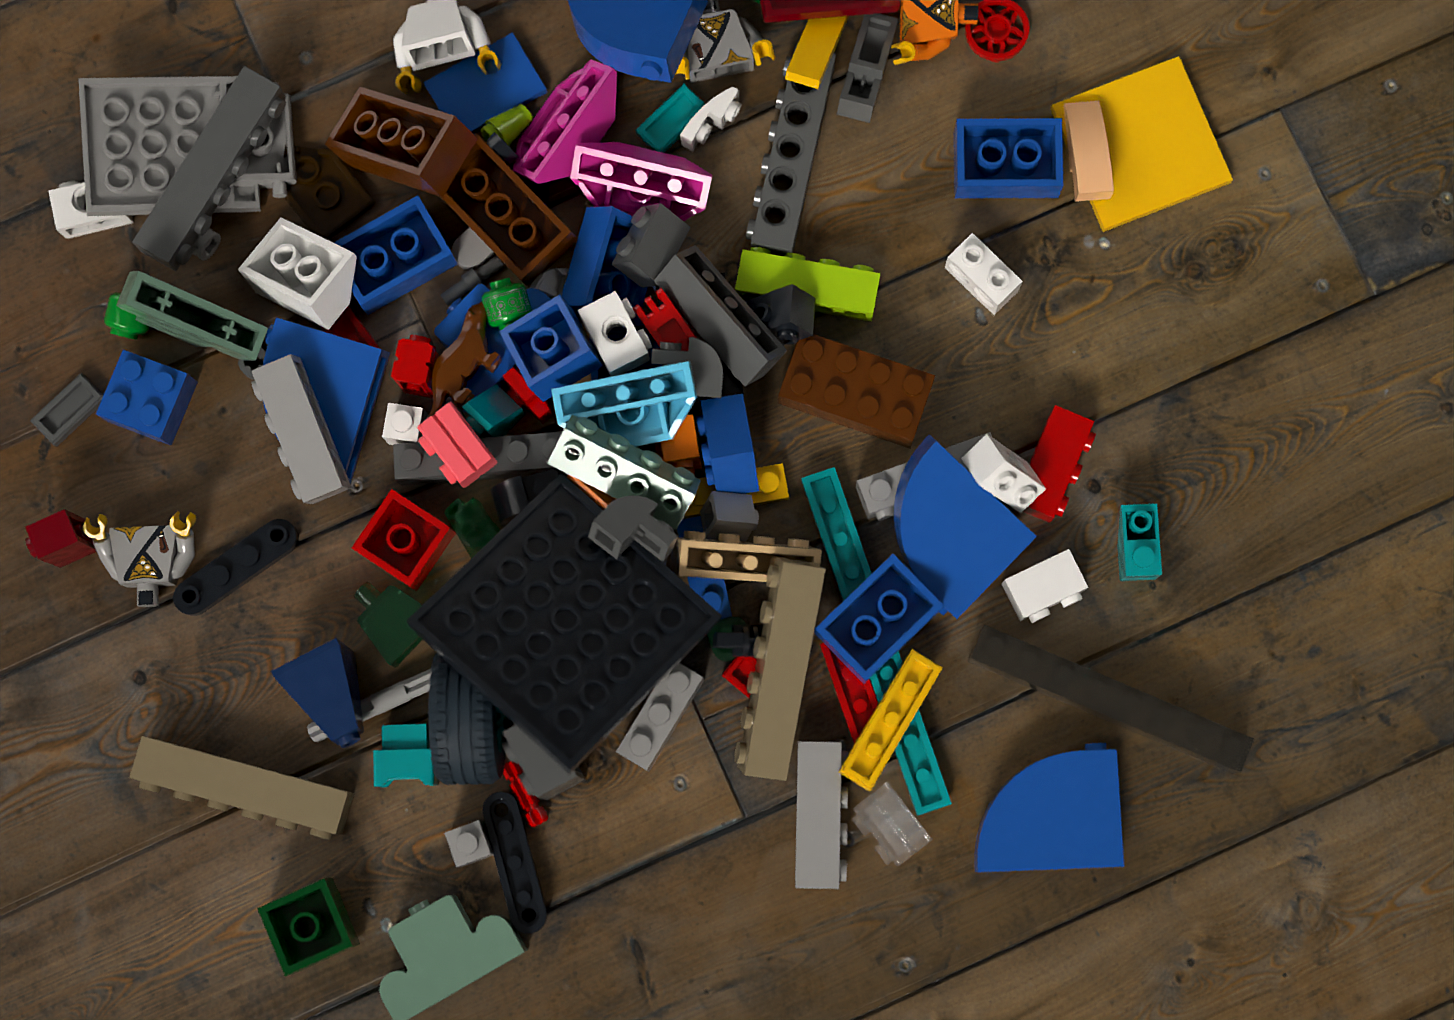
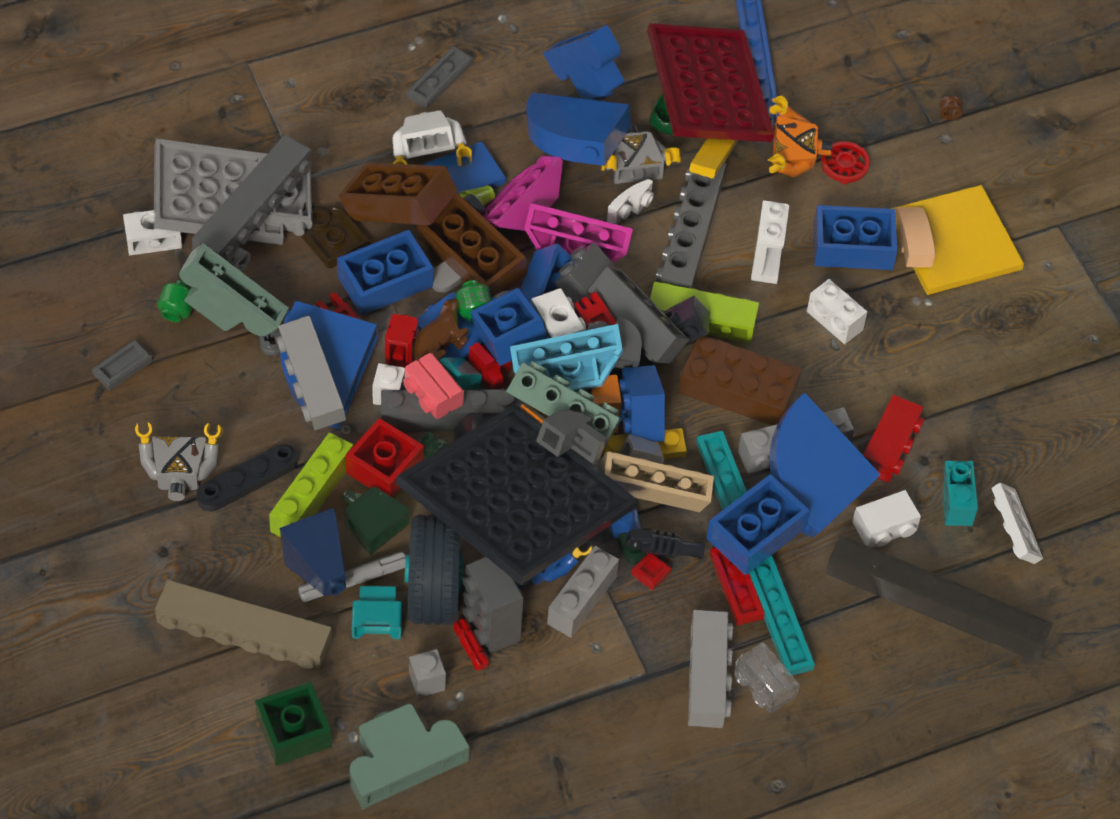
camera: 10 degrees left, 25 degrees down
(59, 539) = (113, 442): dark red brick -> none
(147, 397) = (187, 356): blue brick -> none
(302, 273) = (316, 276): white slope -> none
(314, 585) = (312, 484): none -> lime brick
(471, 280) = (439, 296): dark grey bar -> none
(515, 862) = (462, 691): black plate -> none
(669, 120) = (597, 203): teal tile -> none
(780, 668) = (680, 555): dark tan brick -> none
(867, 67) = (748, 178): dark grey slope -> none
(890, 720) = (766, 599): yellow tile -> none
(894, 179) = (769, 242): none -> white panel
(1003, 473) = (856, 427): white brick -> none
(1055, 815) = (897, 679): blue brick -> none
(1212, 581) = (1016, 523): none -> white plate

